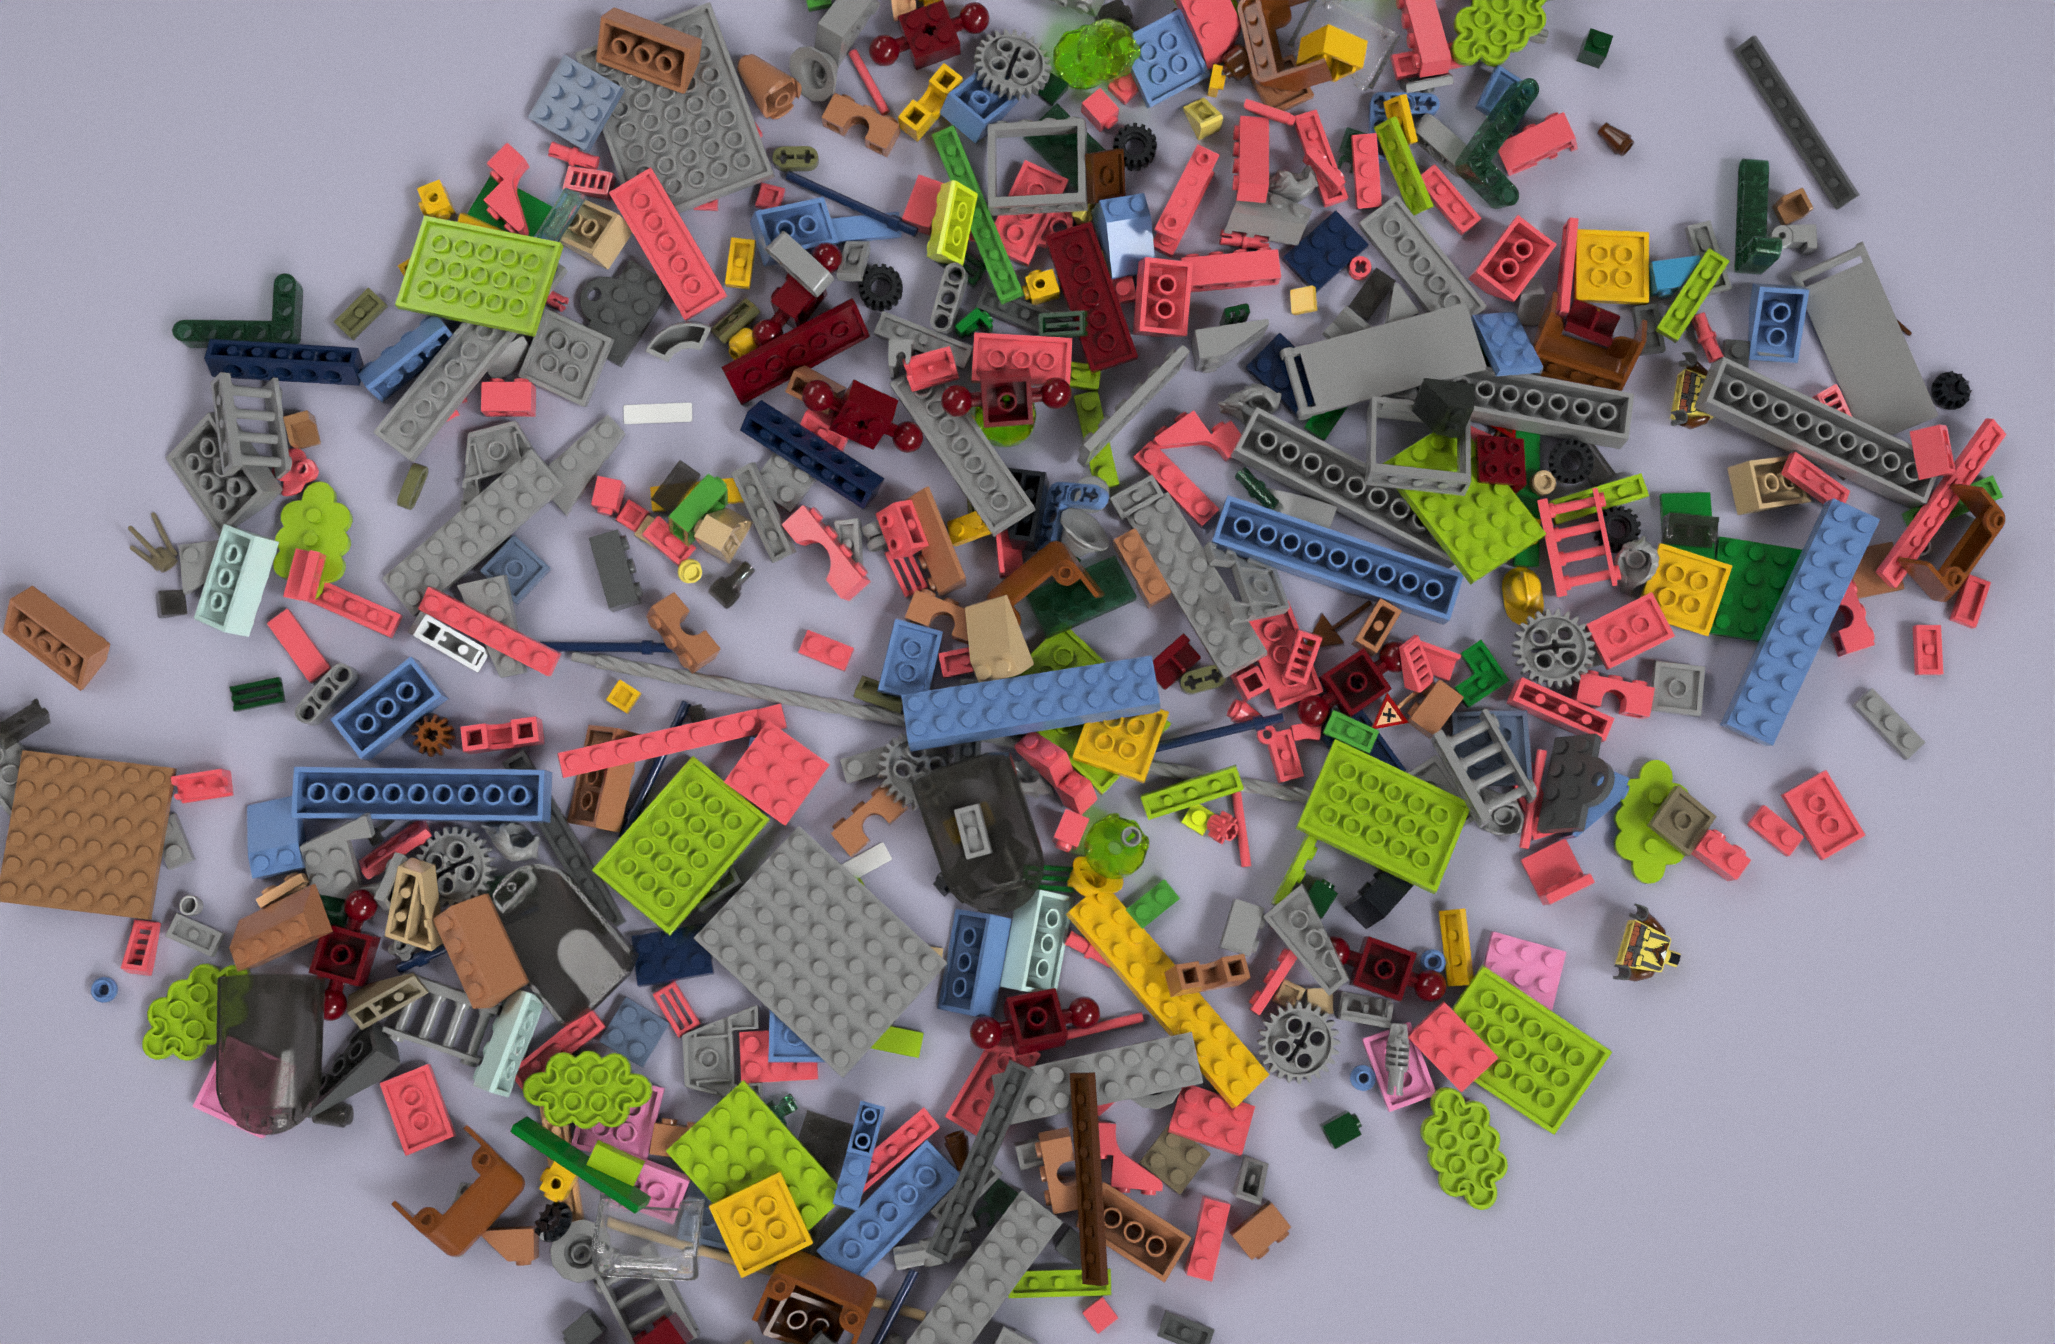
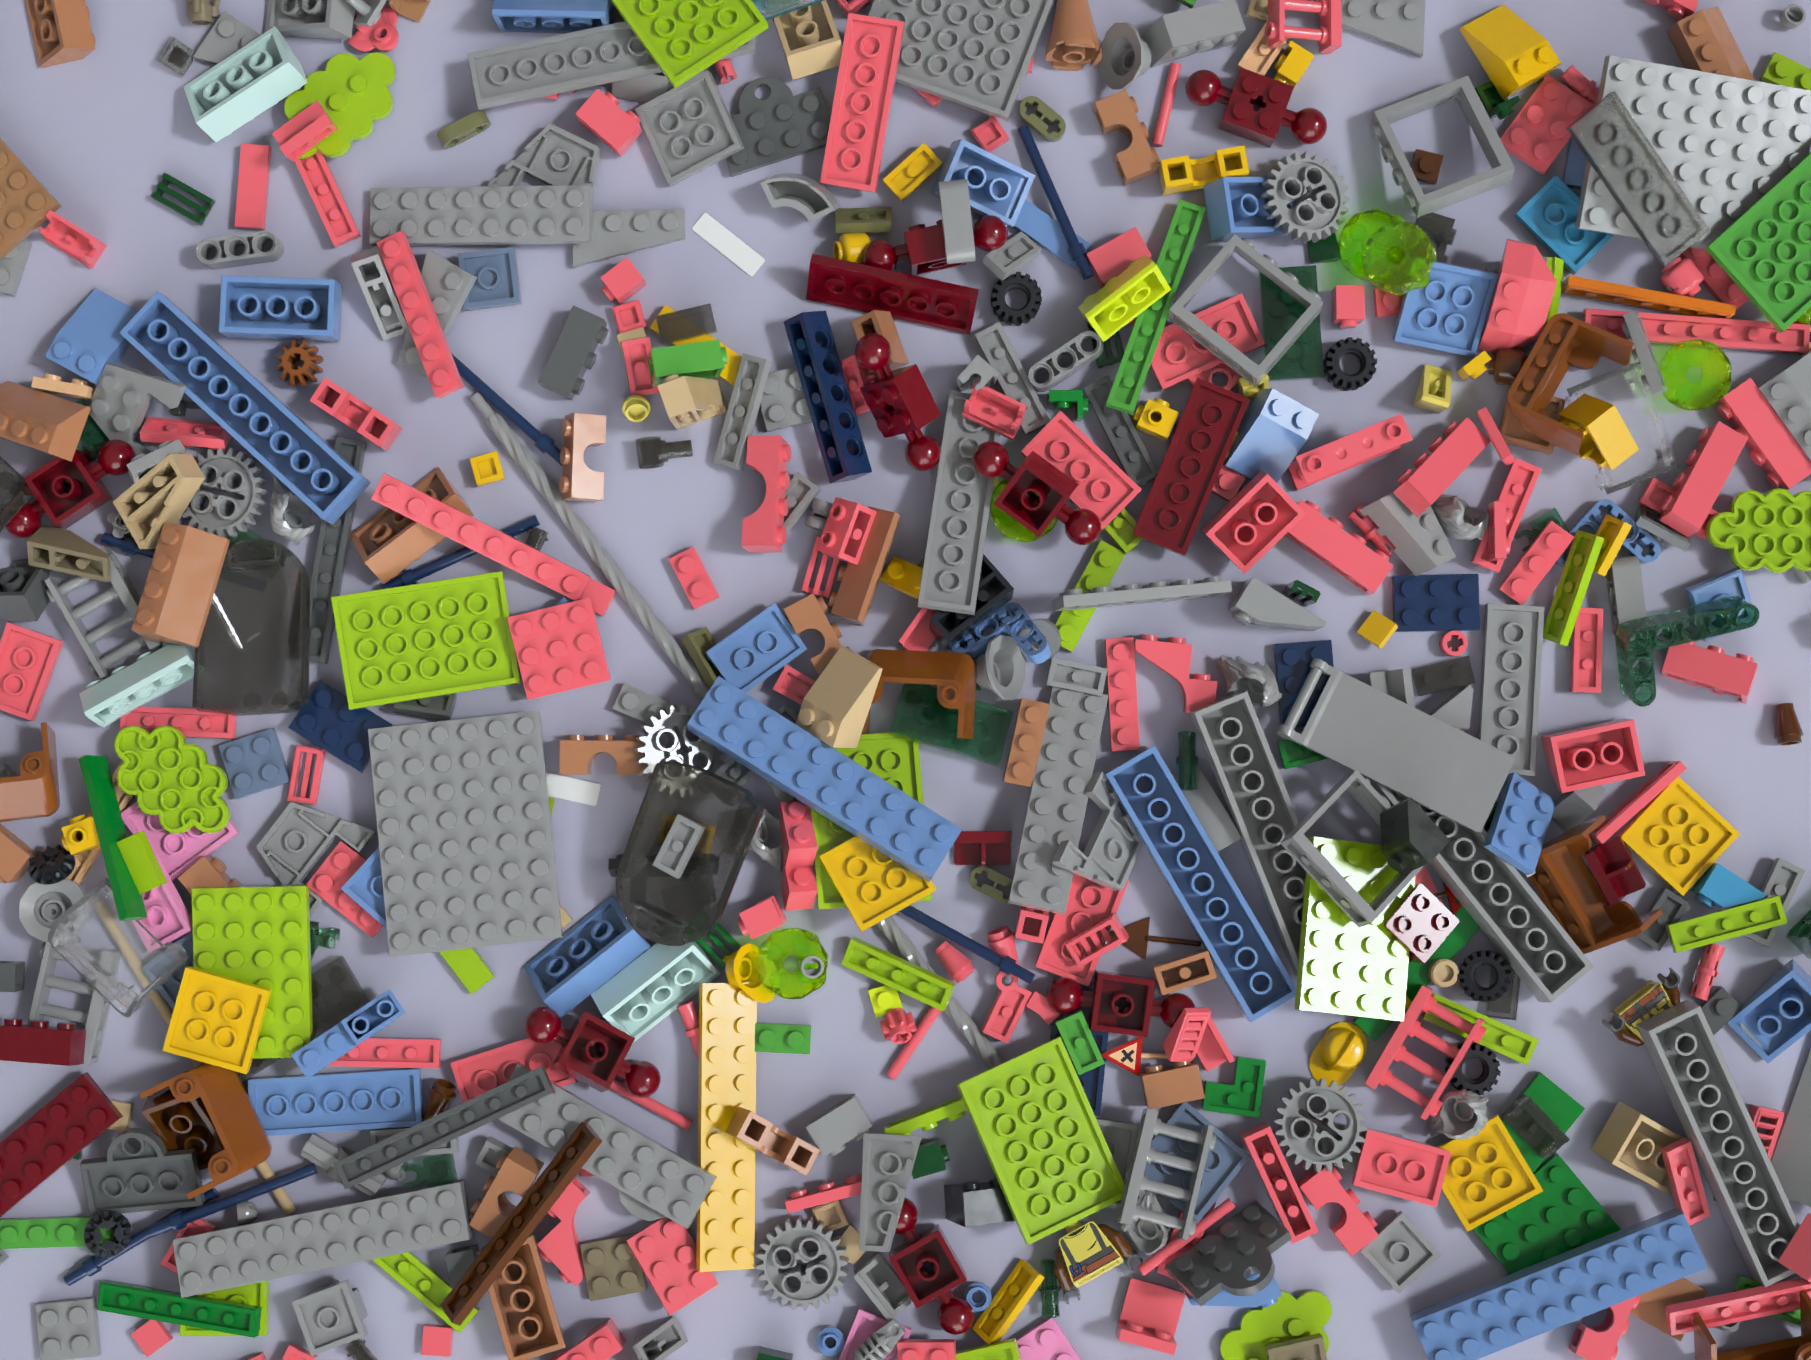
camera: 45 degrees right, 5 degrees up
(1066, 334) = (1160, 484): dark green tile -> none
(1105, 175) = (1298, 369): reddish brown tile -> none
(1221, 753) = (954, 962): none -> coral cone
(1475, 914) = (1049, 1289): none -> clear green axle
(1479, 867) = (1088, 1253): none -> torso

